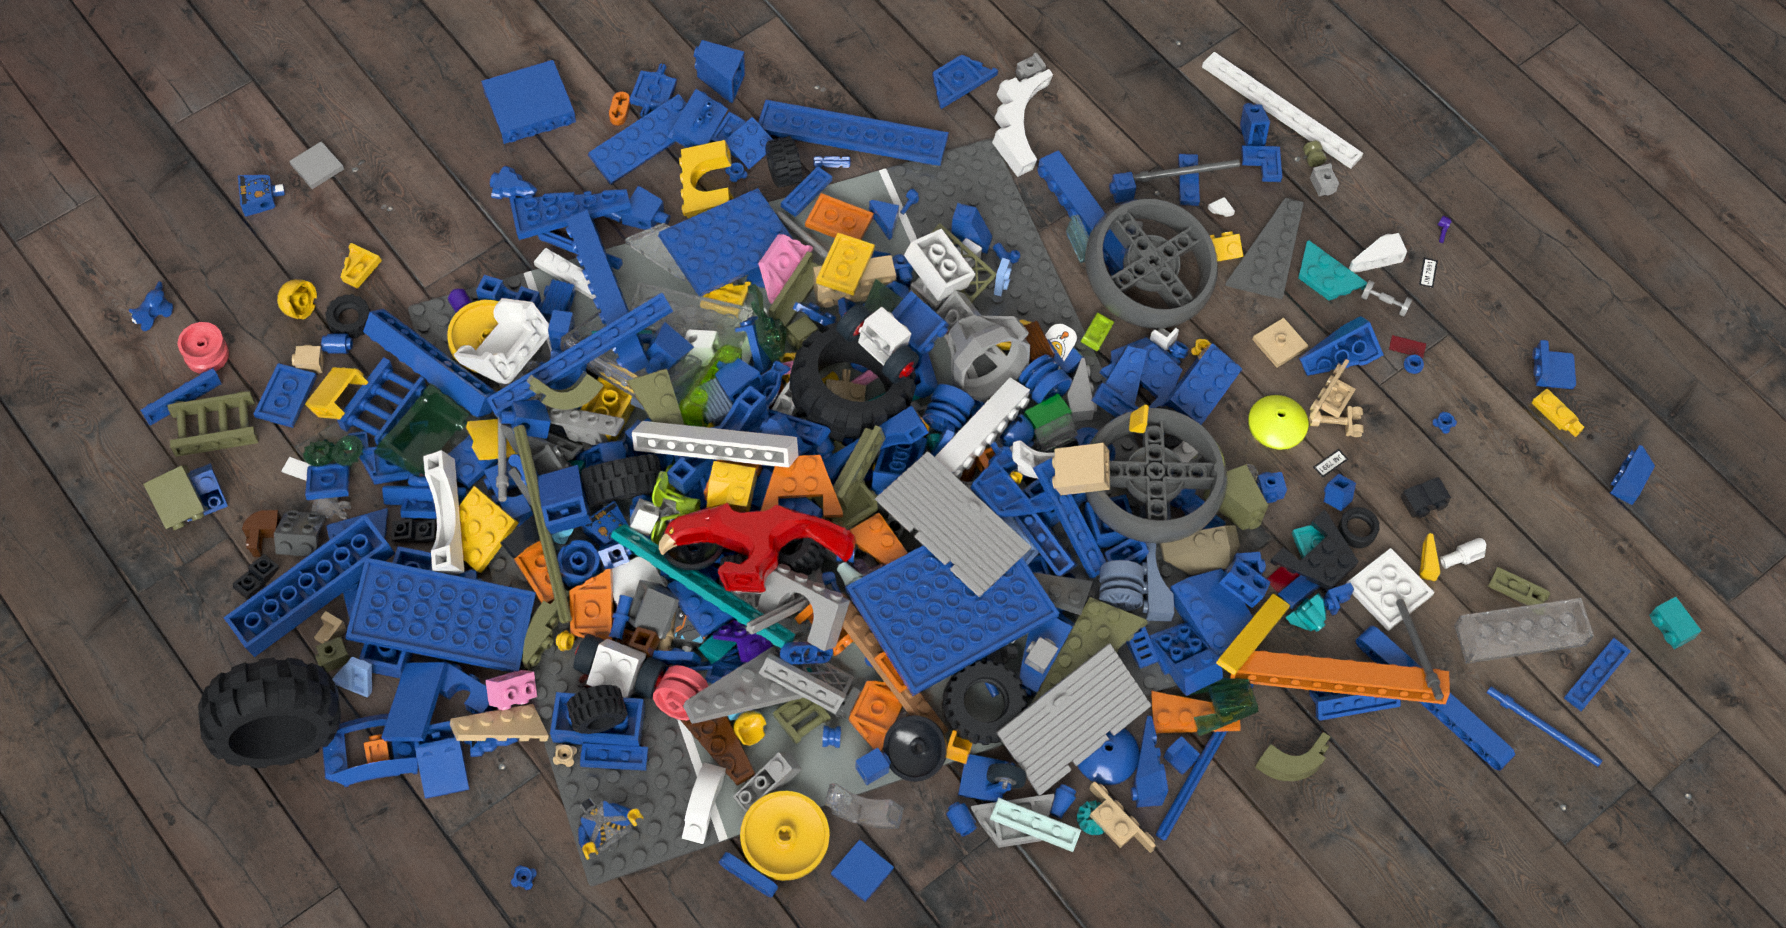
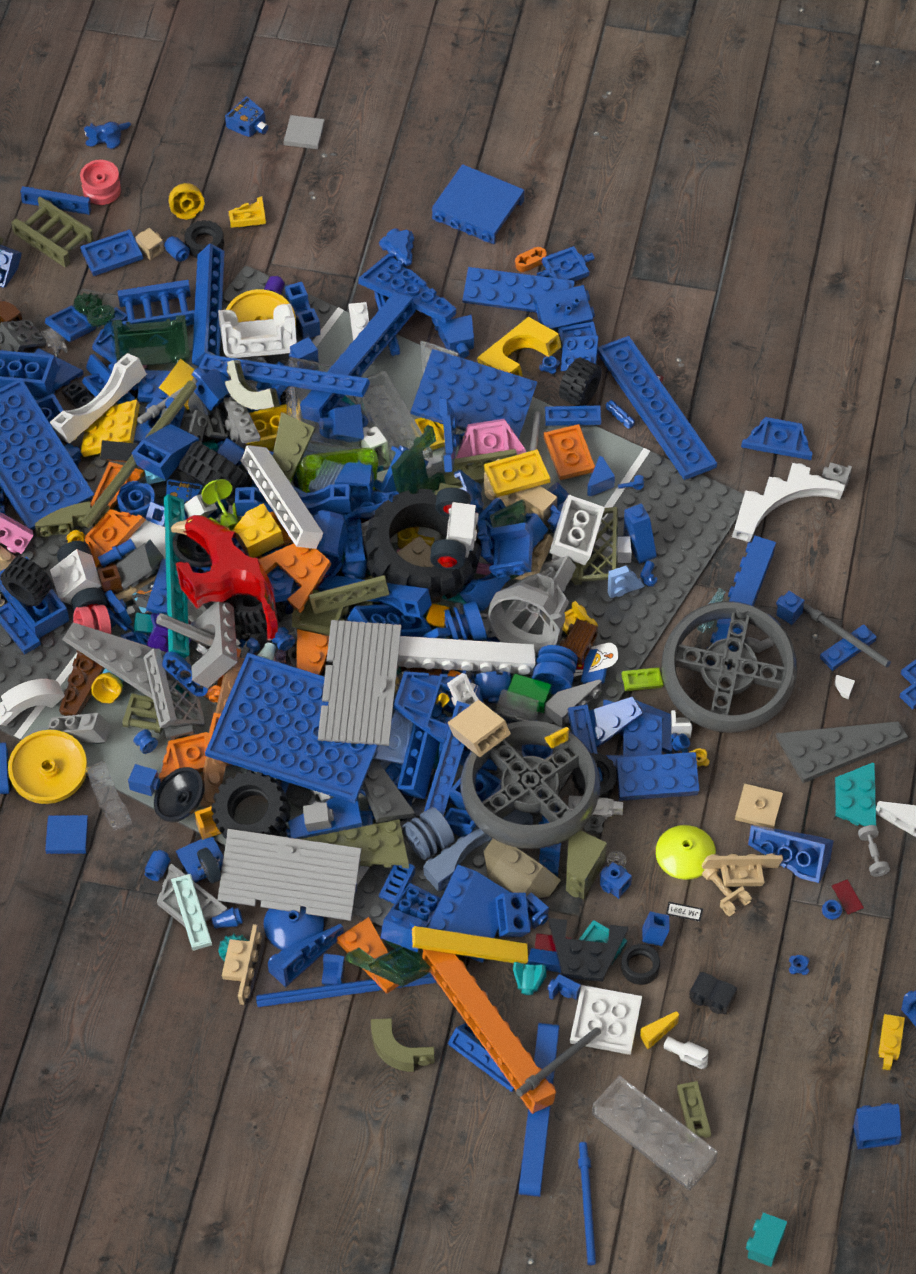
camera: 55 degrees right, 5 degrees down
(296, 468) = (66, 300): white sticker -> none
(323, 398) = (136, 269): yellow panel -> none
(557, 296) = (330, 340): blue brick -> none
(720, 68) = (624, 289): blue slope -> none
(747, 273) = (452, 439): none -> blue wing
(1227, 246) = (804, 709): yellow bracket -> none
(1597, 674) = (668, 1212): blue plate -> none

